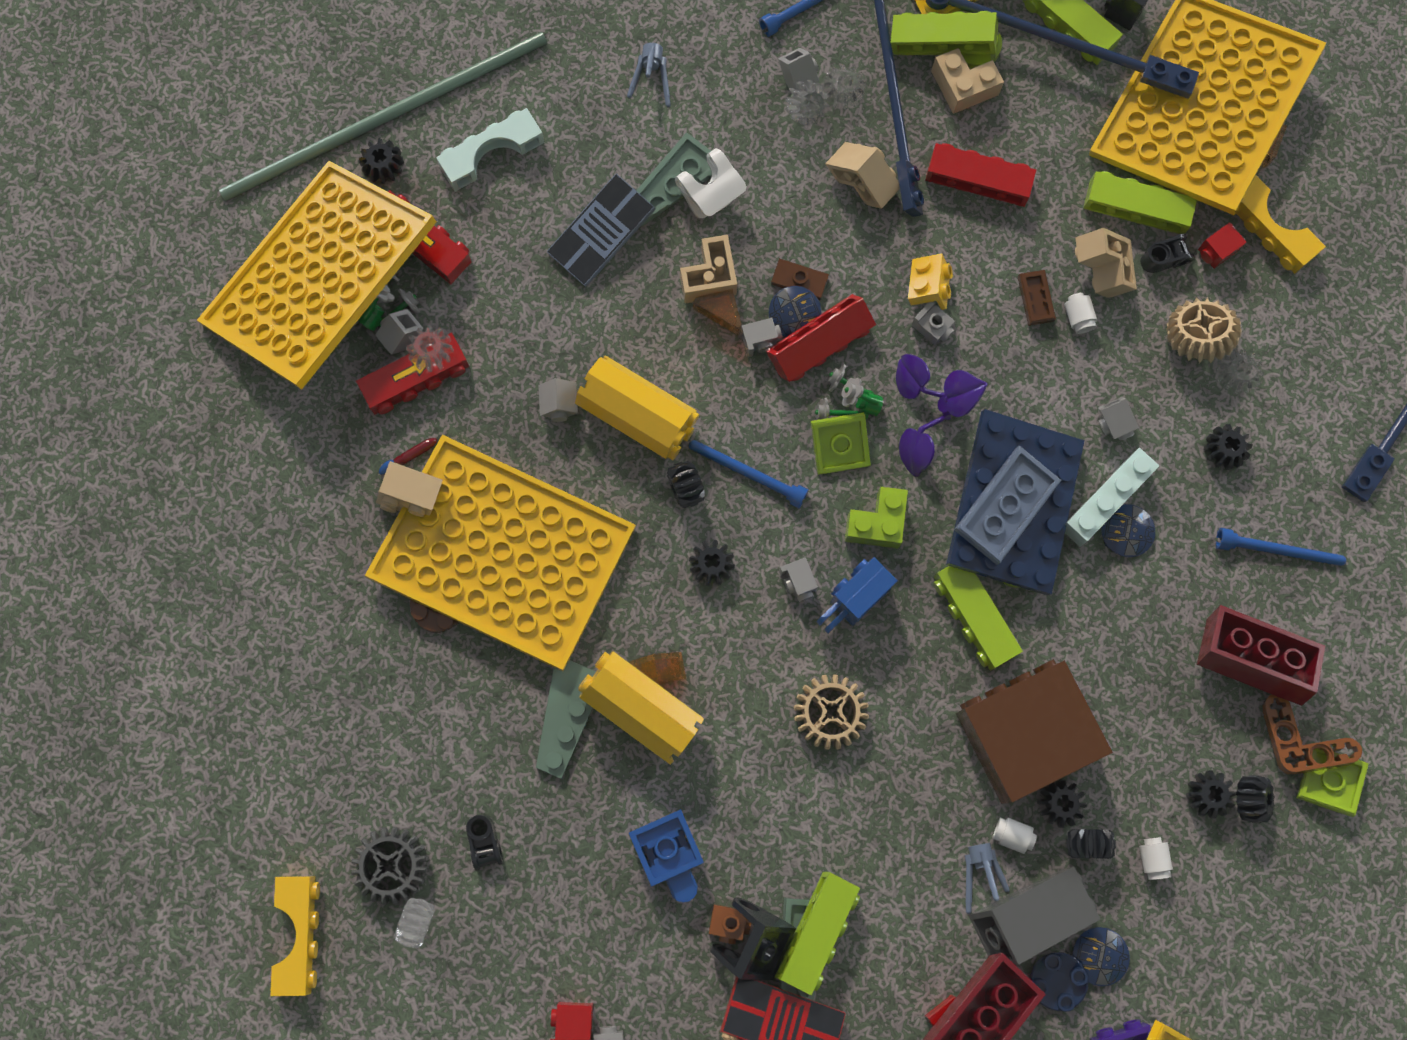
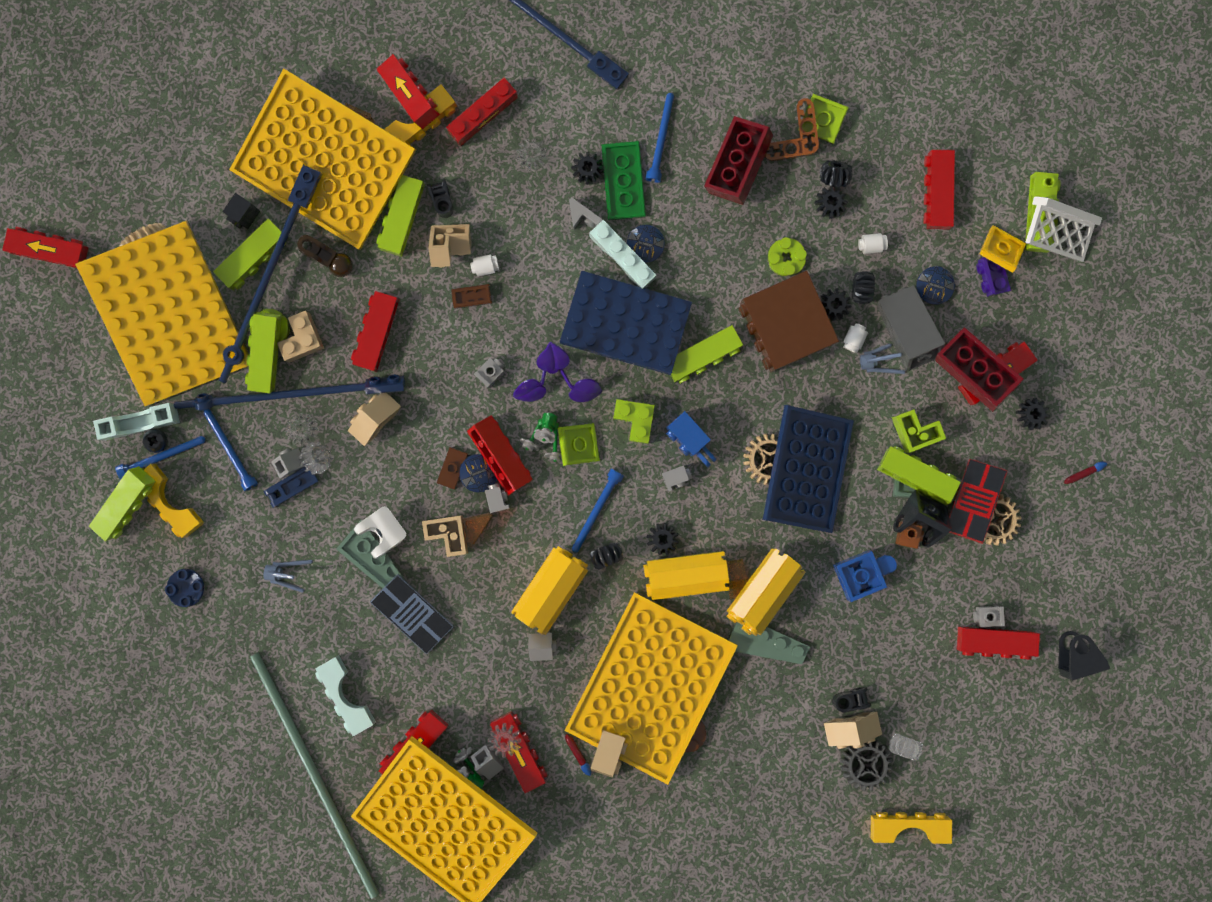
camera: 85 degrees left, 10 degrees up
(383, 169) = (345, 773): black gear -> none
(440, 844) = (853, 730): none -> tan brick
(661, 593) = (686, 575): none -> yellow brick
(766, 75) = (291, 486): none -> dark blue plate
(820, 766) = (808, 469): none -> dark blue plate
(874, 929) = (915, 436): none -> lime brick
(930, 280) = (458, 373): yellow bracket -> none
(1007, 505) = (631, 329): sand blue tile -> none
(1061, 980) = (951, 314): dark blue dish -> none
(1068, 125) = (338, 263): none -> dark brown piece
(1117, 419) = (566, 245): light grey brick -> none
(1141, 730) = (797, 253): none -> lime plate
(1164, 436) = (579, 211): none -> light grey slope
(1203, 330) = (497, 164): tan gear -> none
(1214, 498) = (623, 180): none -> green tile
(1221, 245) = (437, 159): red brick -> none
(1245, 958) = (940, 189): none -> red brick
(1292, 303) = (482, 111): none -> red brick
(1311, 203) = (408, 92): none -> red brick

